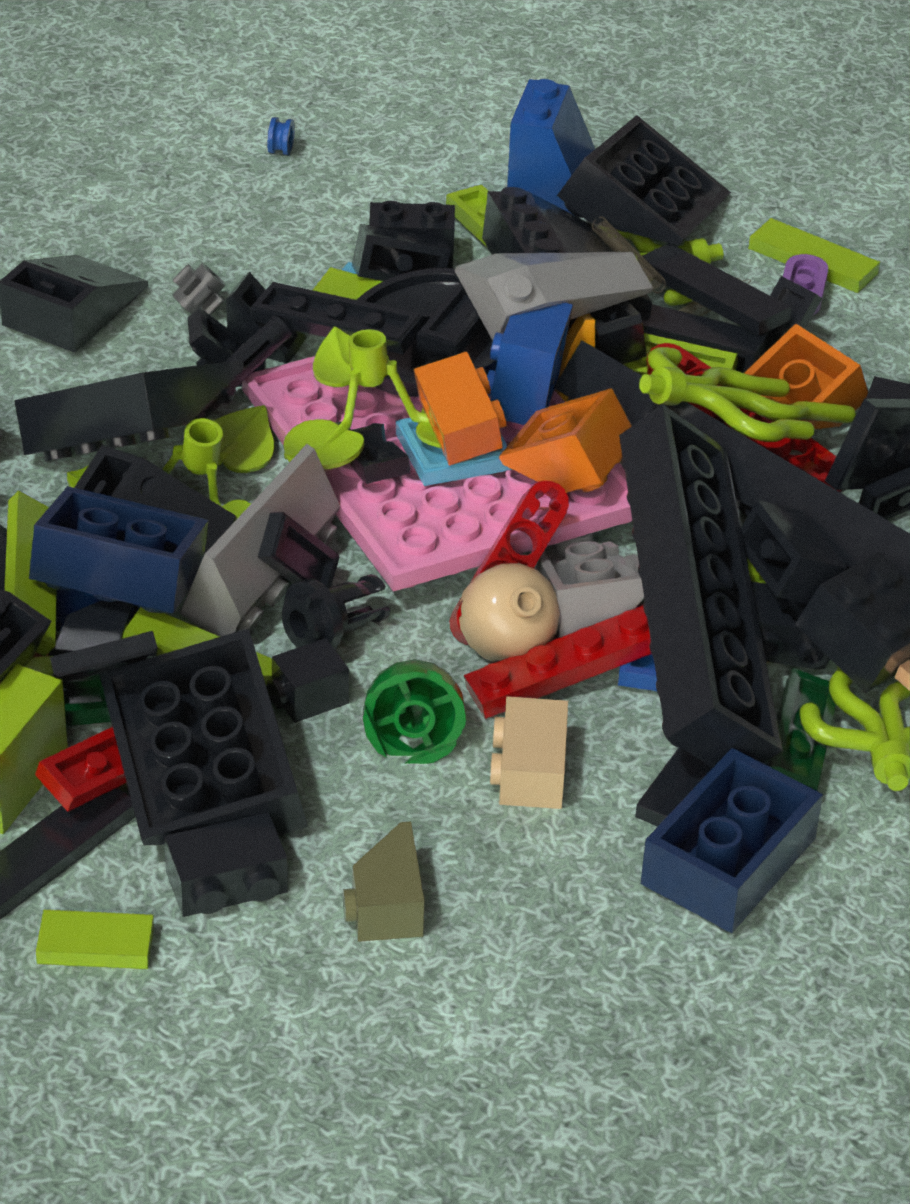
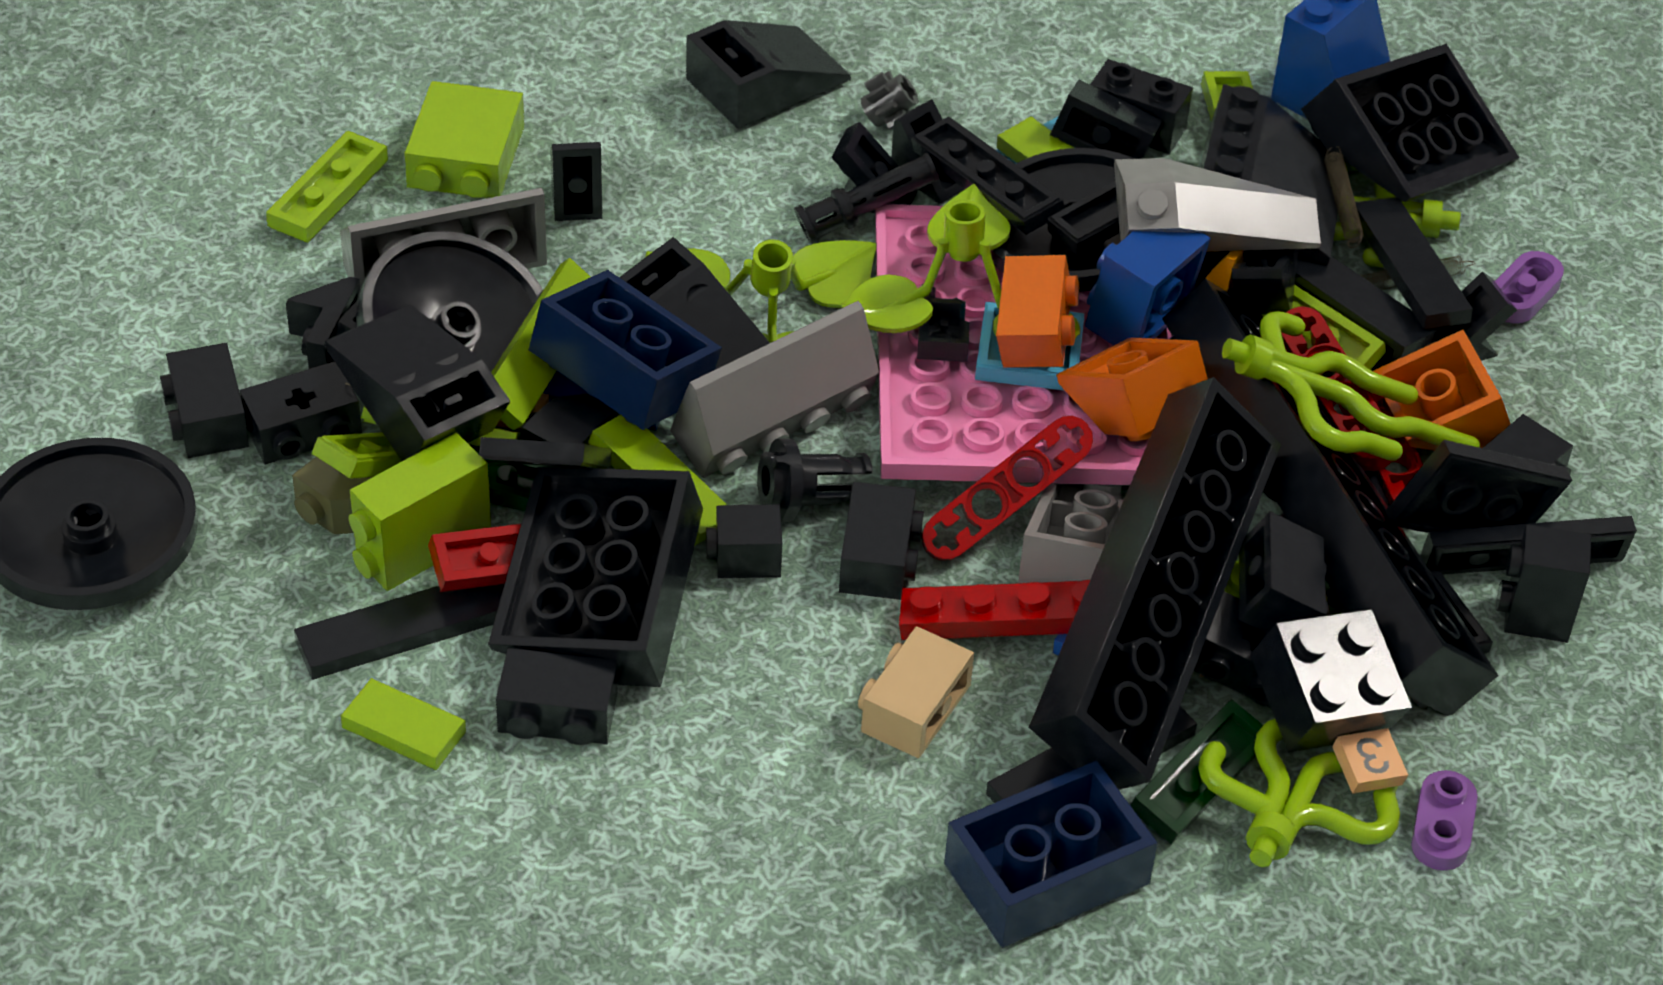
camera: 25 degrees right, 5 degrees up
(119, 409) = (720, 206): black slope -> none
(296, 551) = (803, 410): black tile -> none
(387, 889) = (691, 775): olive slope -> none
(417, 702) = (820, 599): green cylinder -> none
(421, 629) = (878, 541): none -> black brick
(508, 611) = (976, 539): tan cylinder -> none
(845, 266) = (1585, 273): lime tile -> none

